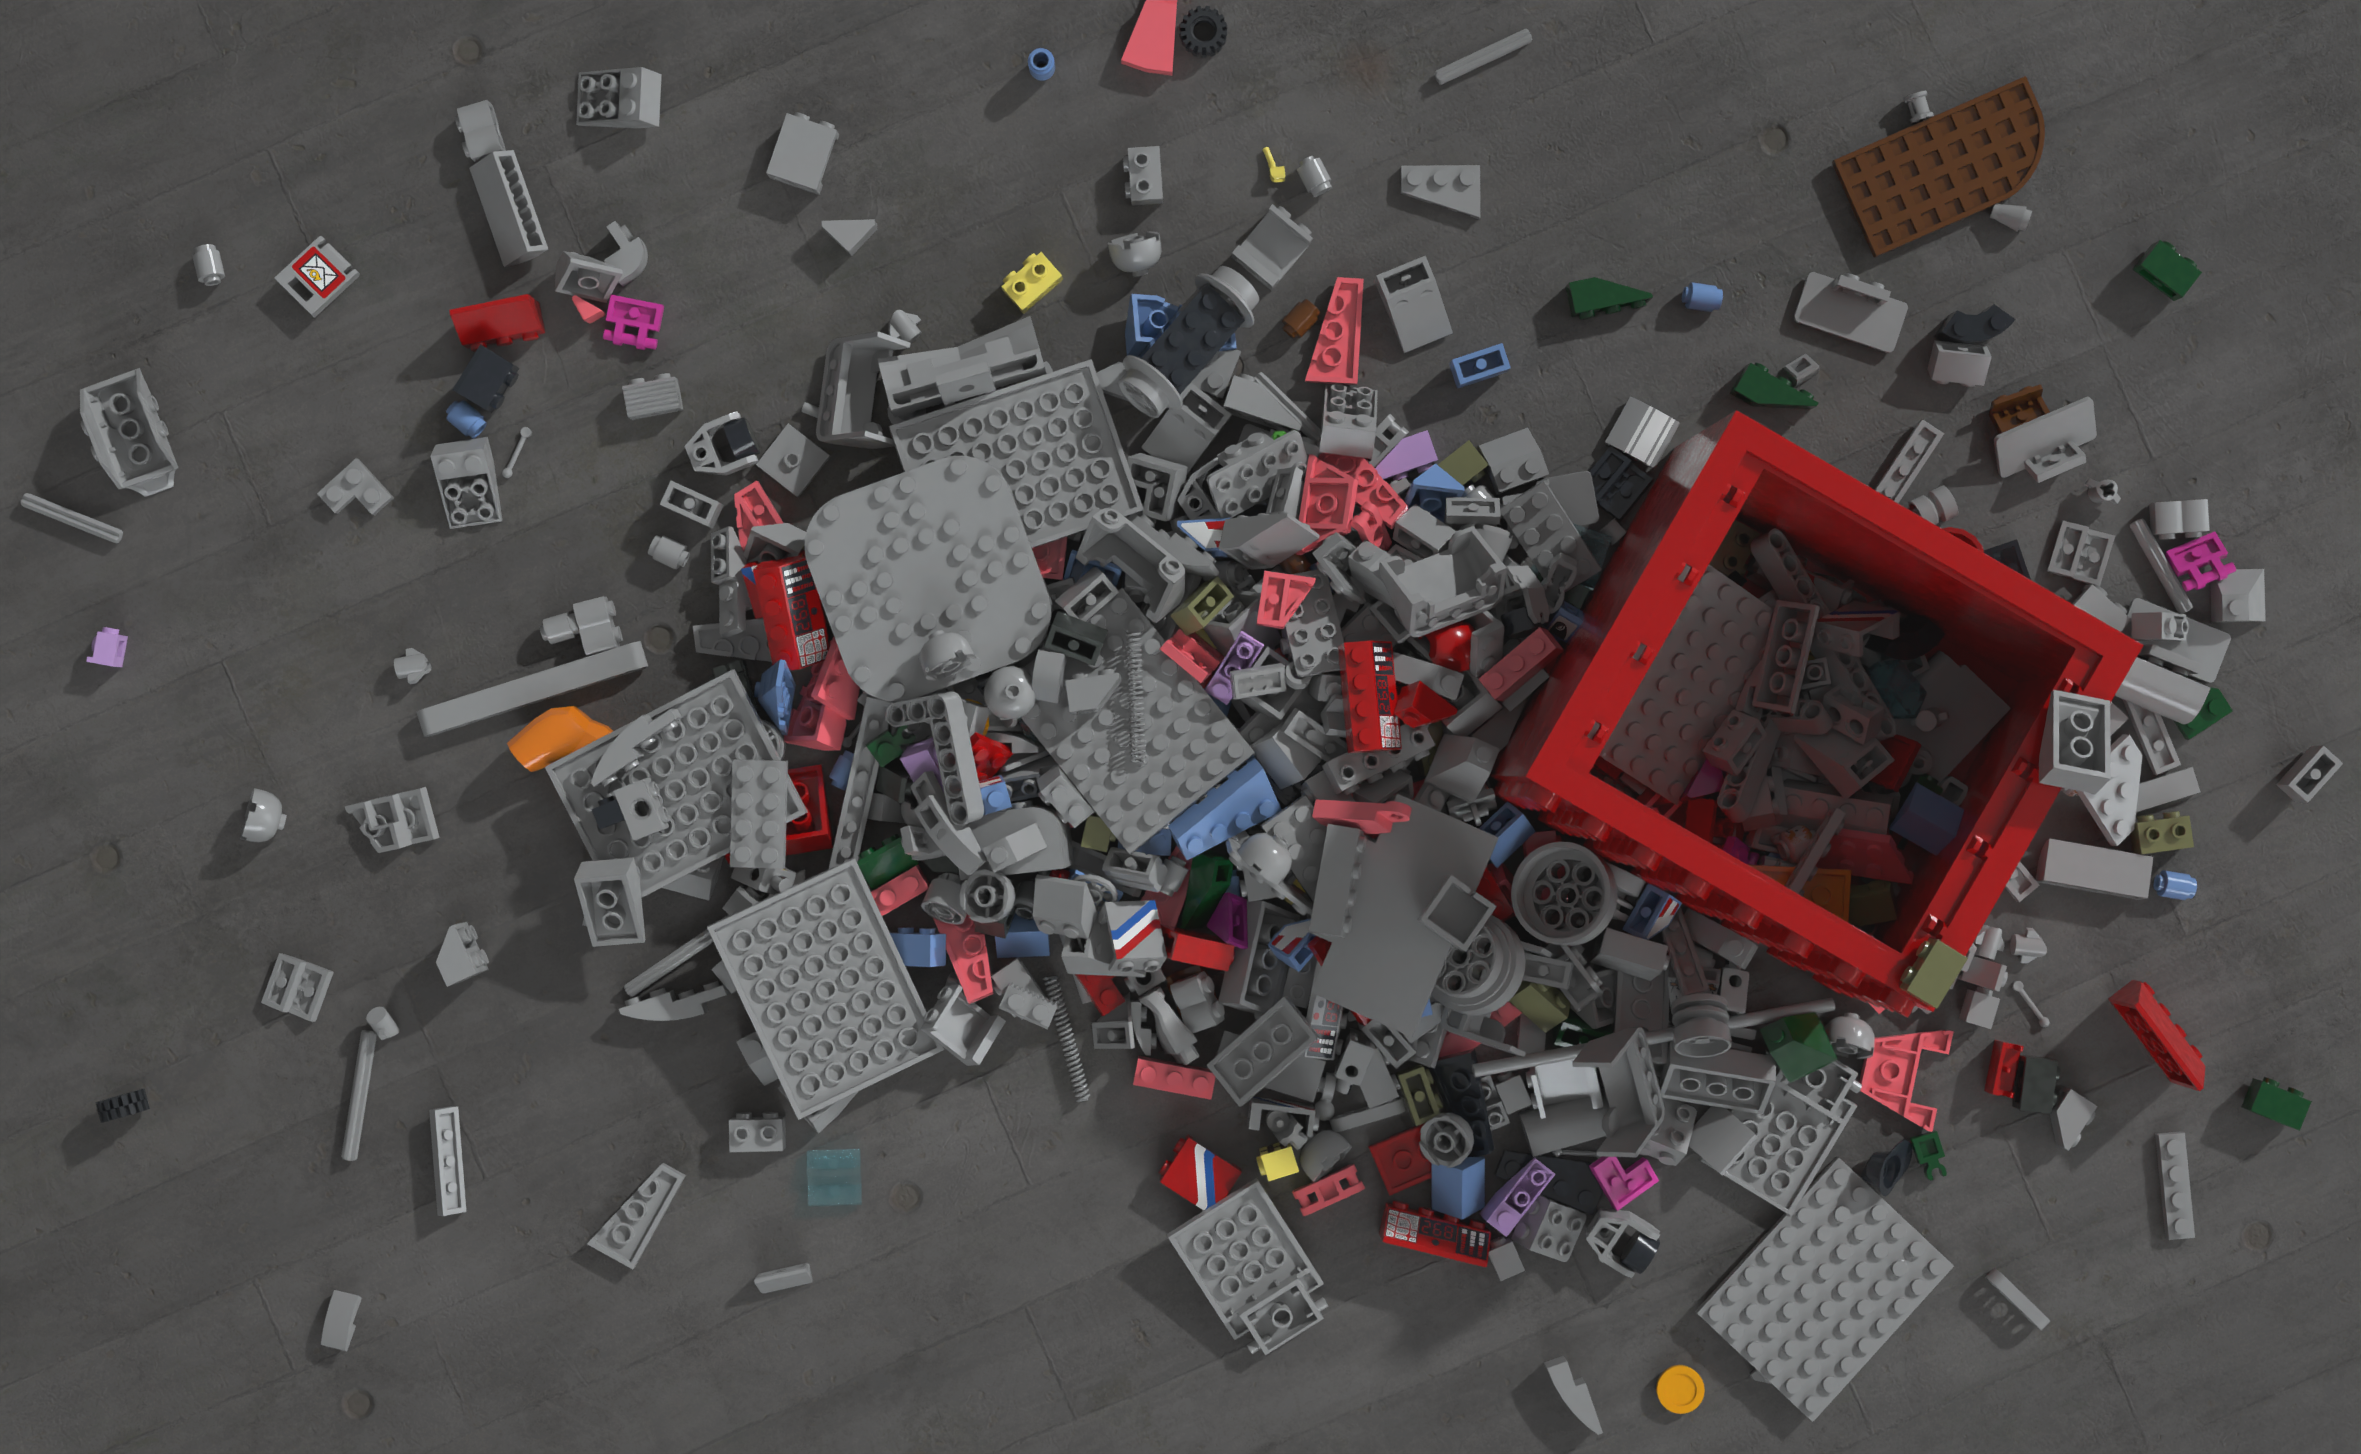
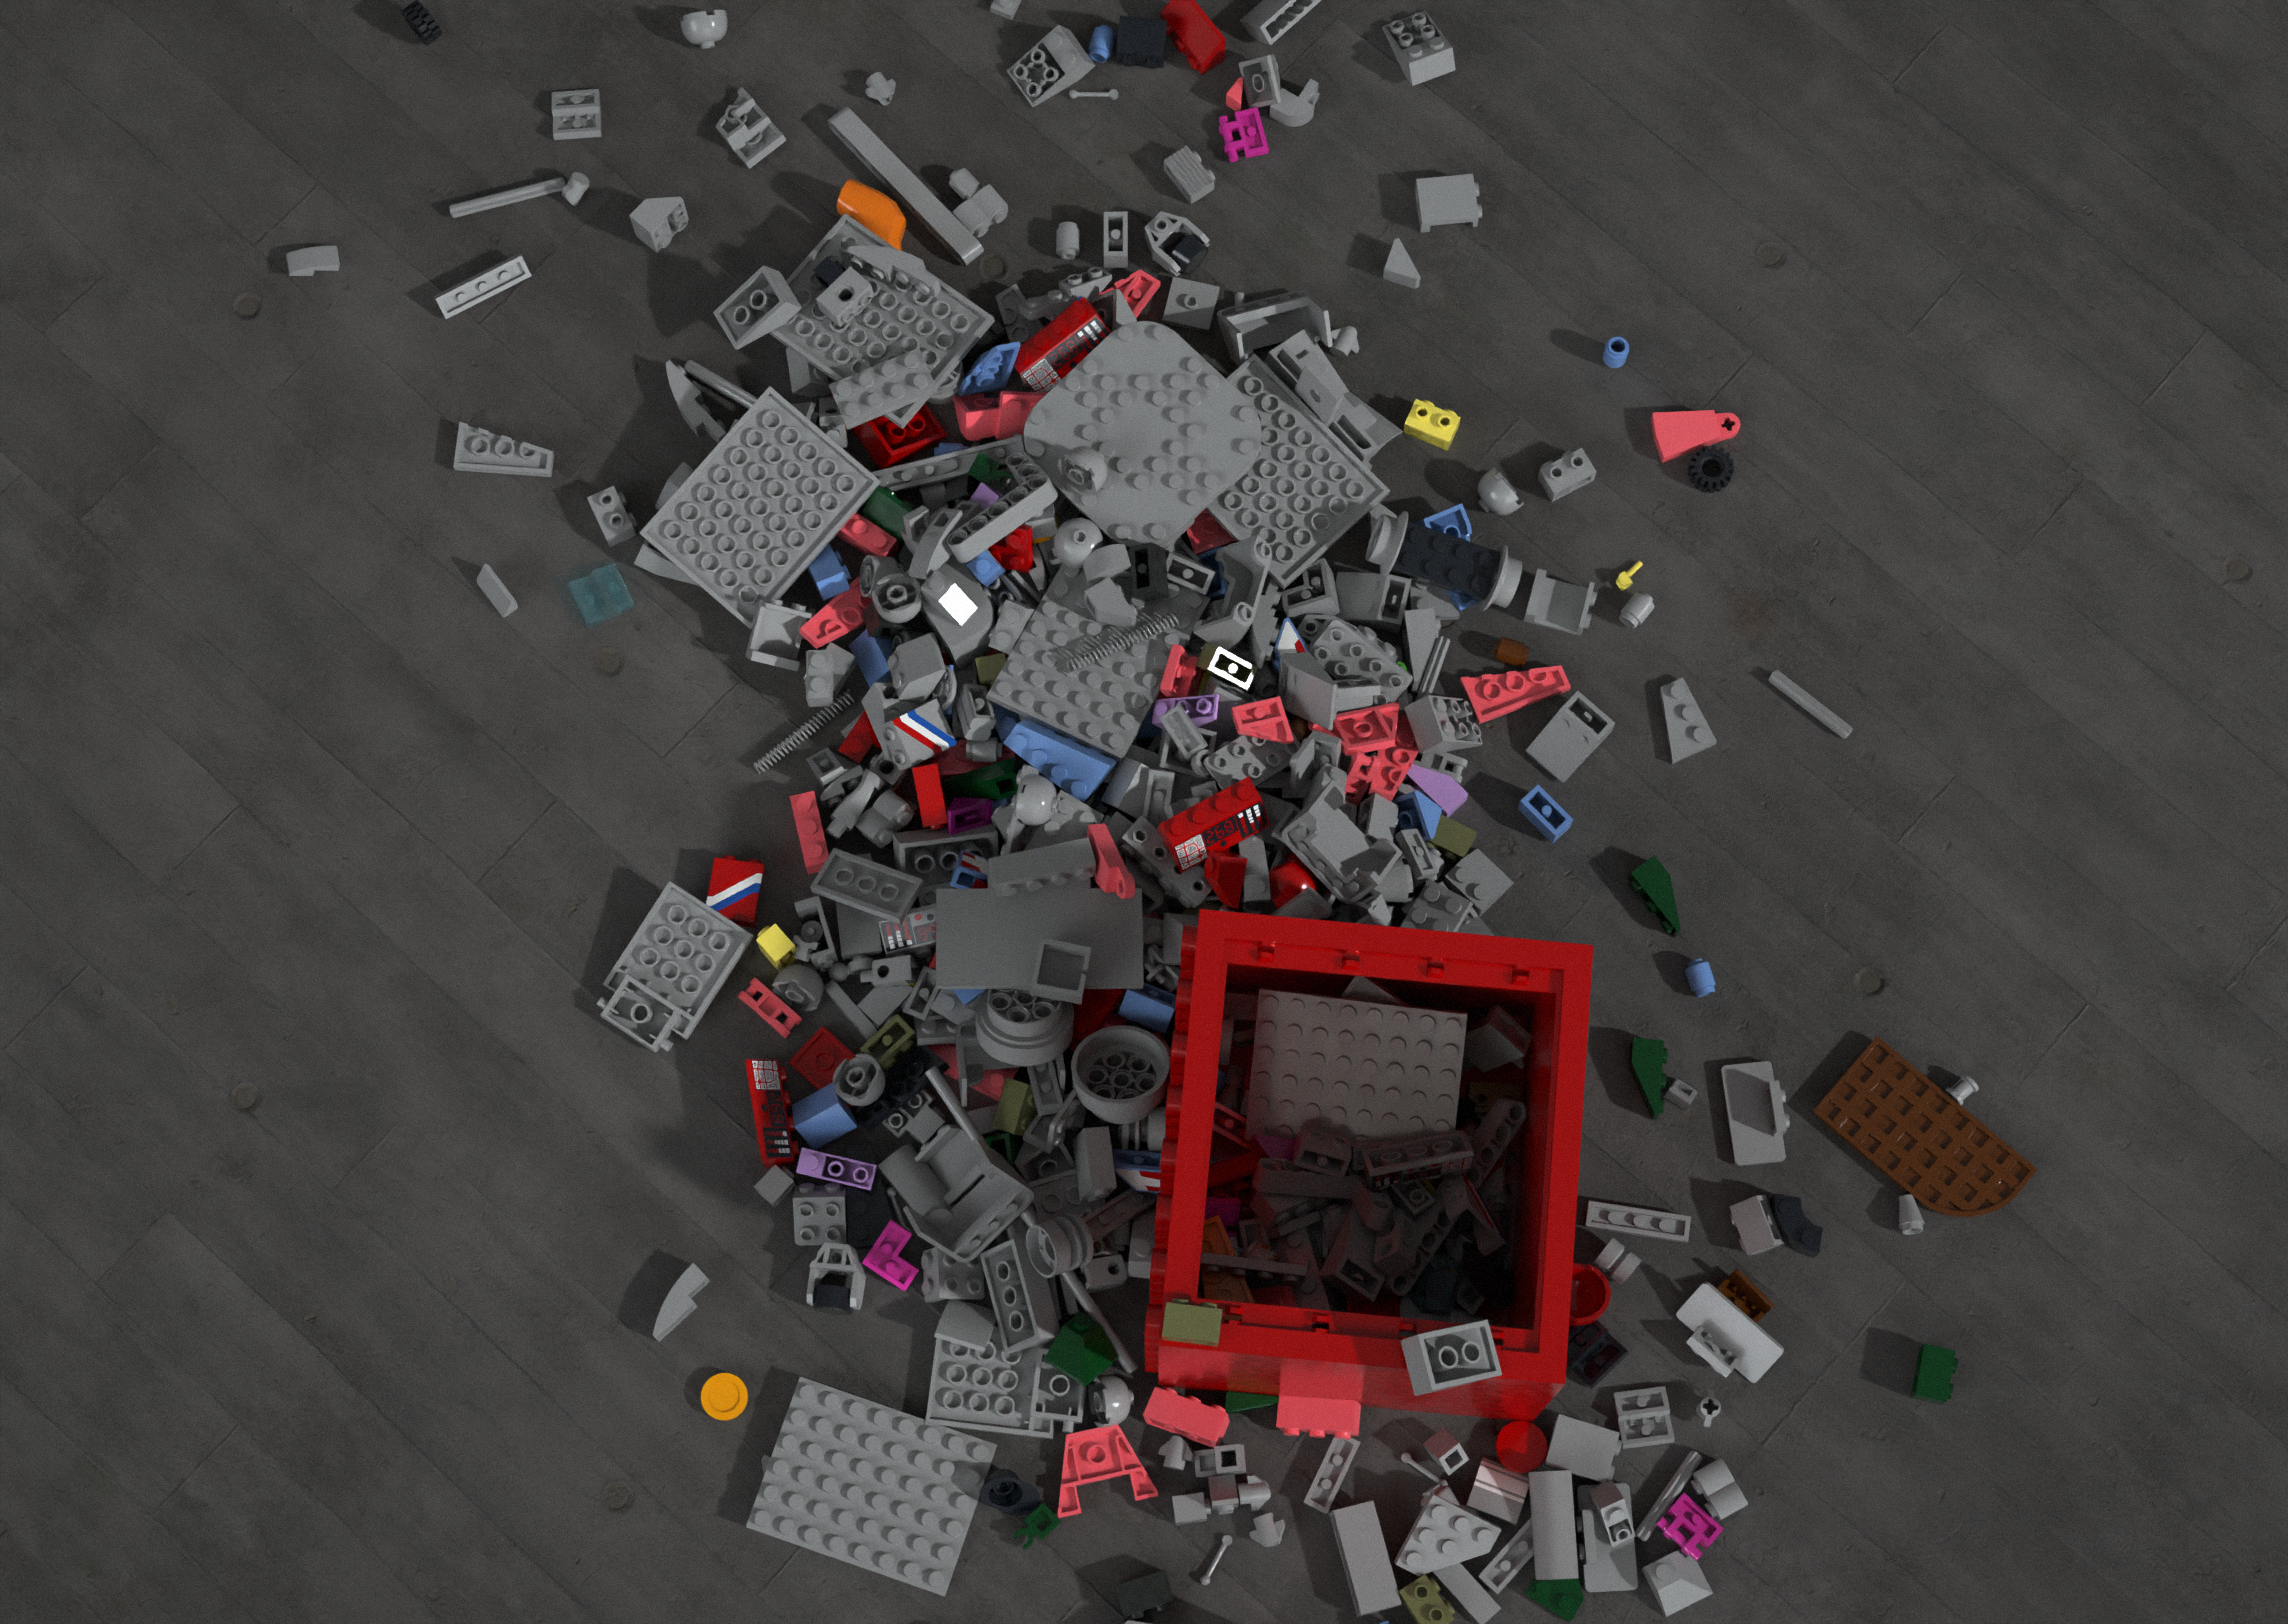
camera: 65 degrees right, 15 degrees down
(2003, 1068) = (1145, 1560): red hinge -> none

